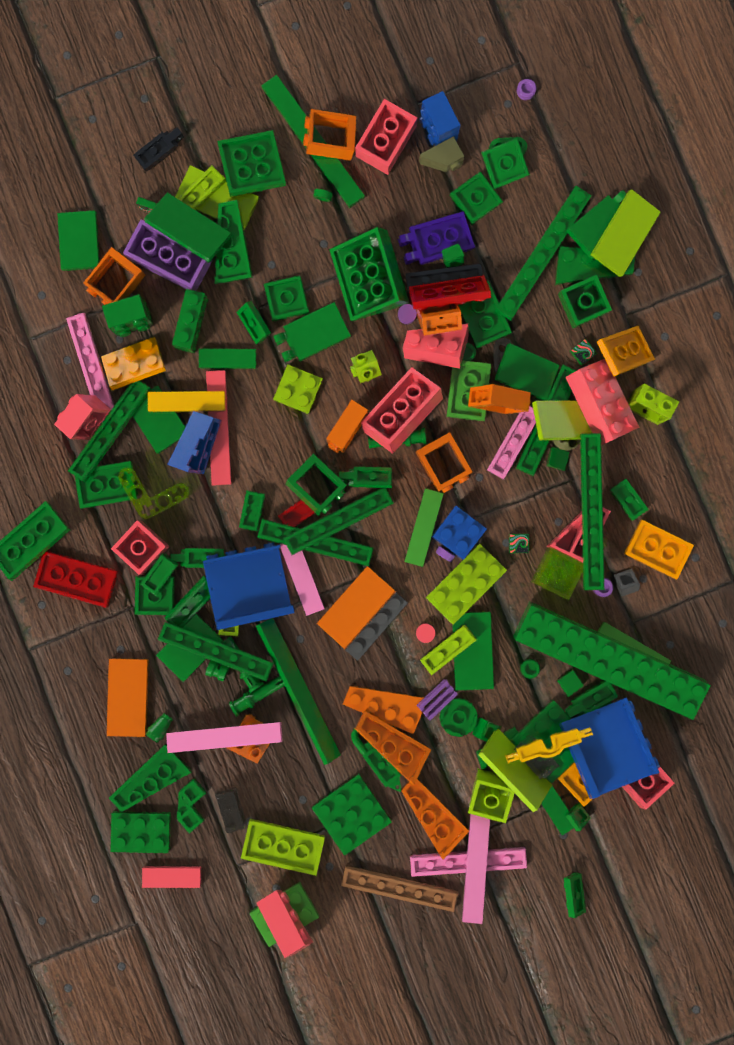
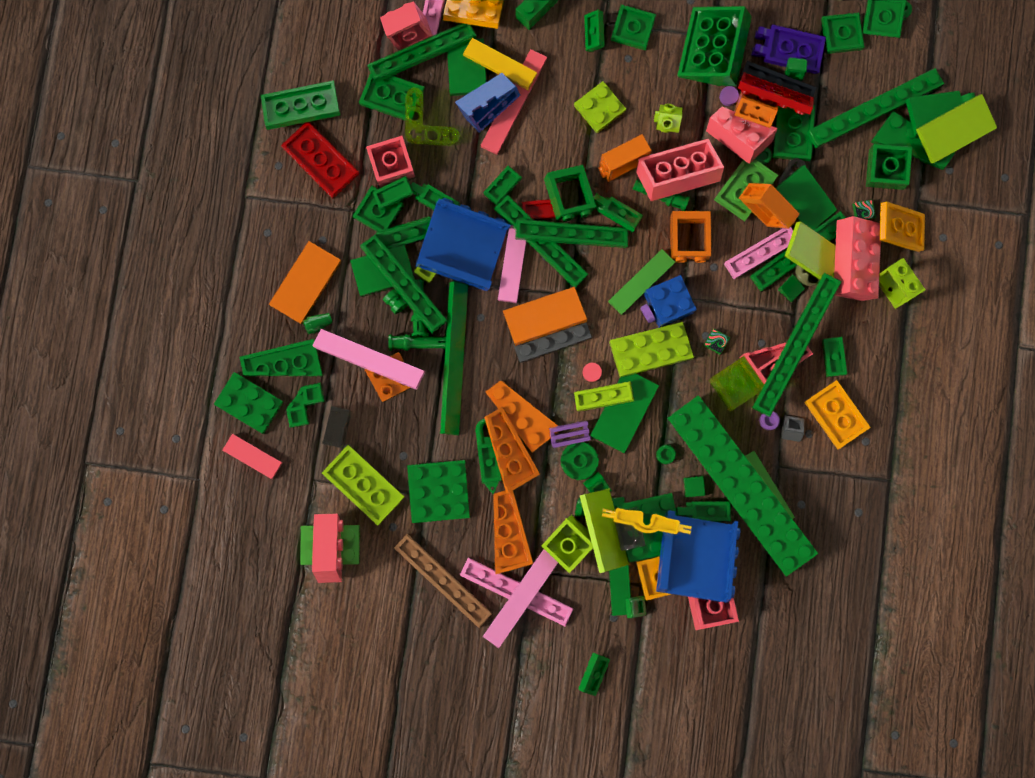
camera: 30 degrees right, 5 degrees down
(227, 359) = (554, 49): green tile -> none
(313, 333) = (639, 68): green tile -> none

